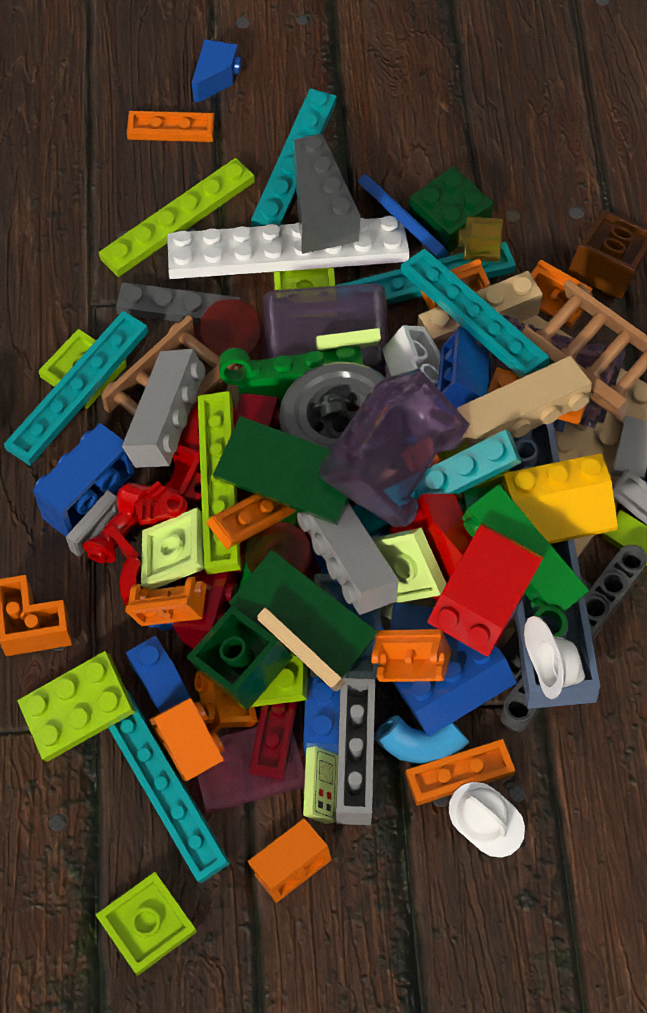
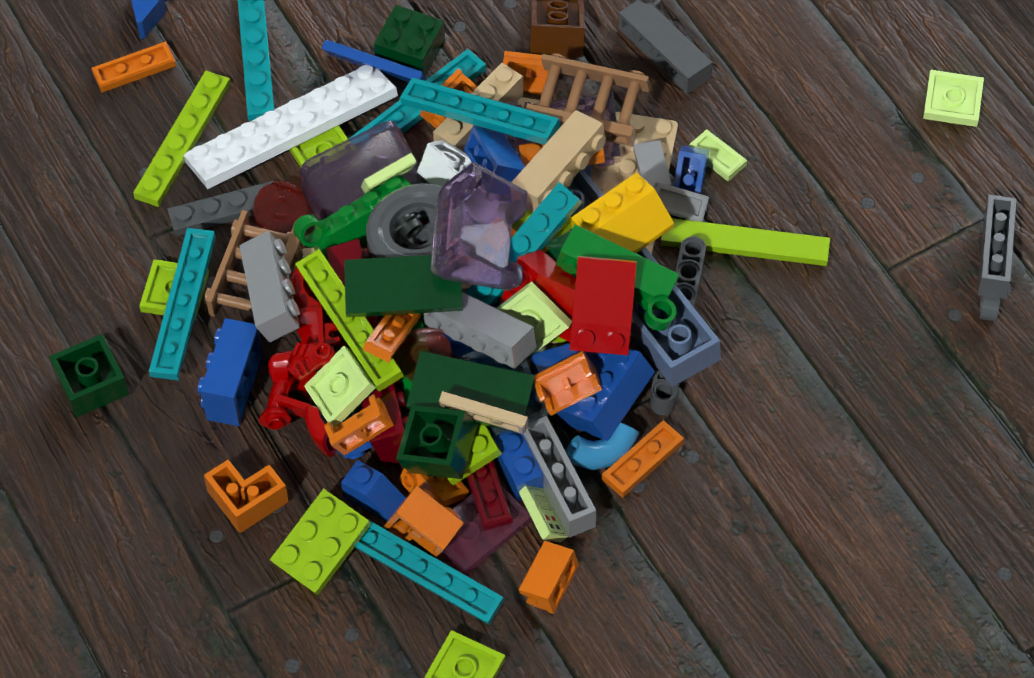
camera: 25 degrees left, 5 degrees down
(92, 522) = (254, 403): light grey tile -> none
(323, 200) = (303, 71): dark grey wedge -> none
(482, 239) = (450, 53): clear yellow brick -> none
(487, 819) = (680, 482): white piece -> none
(553, 658) = (677, 335): white piece -> none

